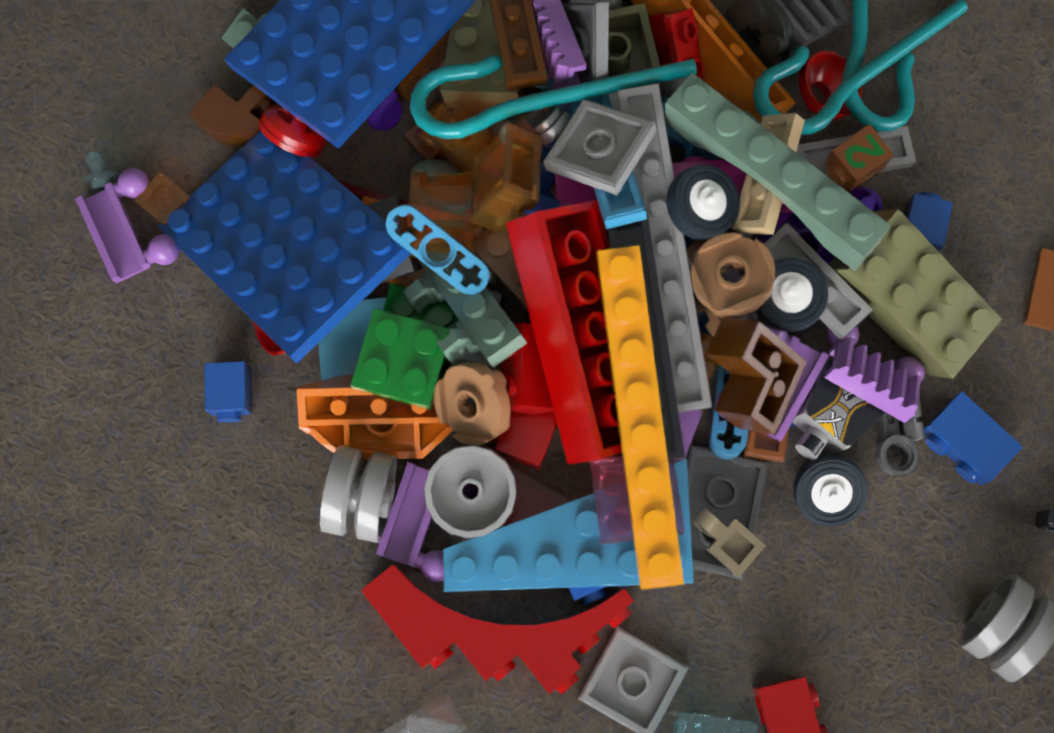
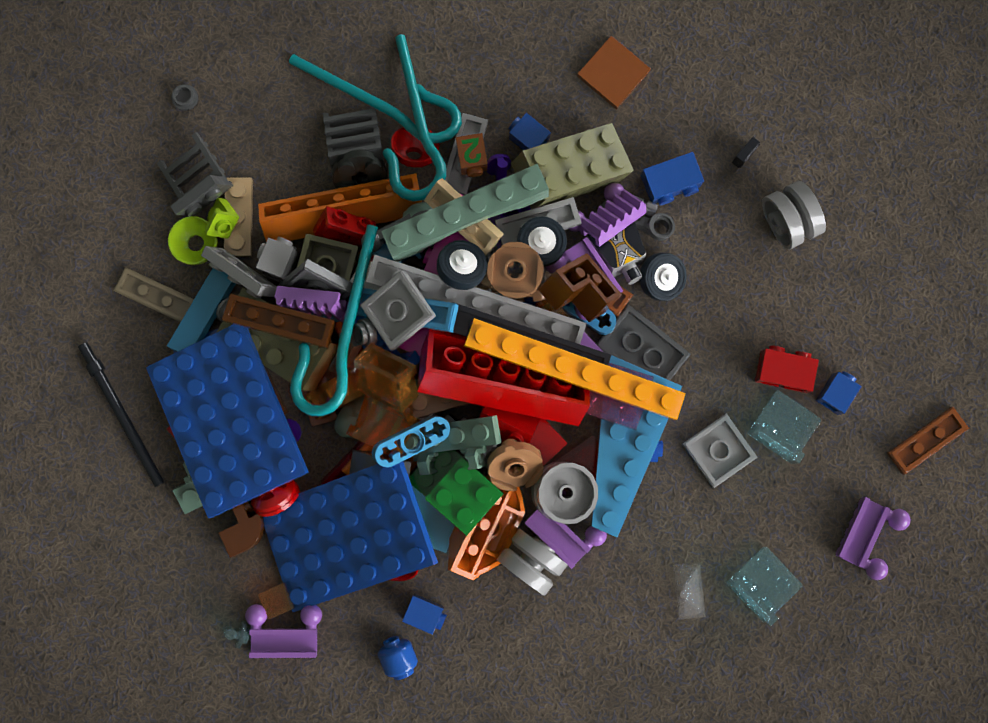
camera: 70 degrees left, 5 degrees up
(156, 383) = (397, 658): none -> blue head
(545, 648) = (660, 525): red arch -> none
(732, 543) = (668, 351): dark tan plate -> none

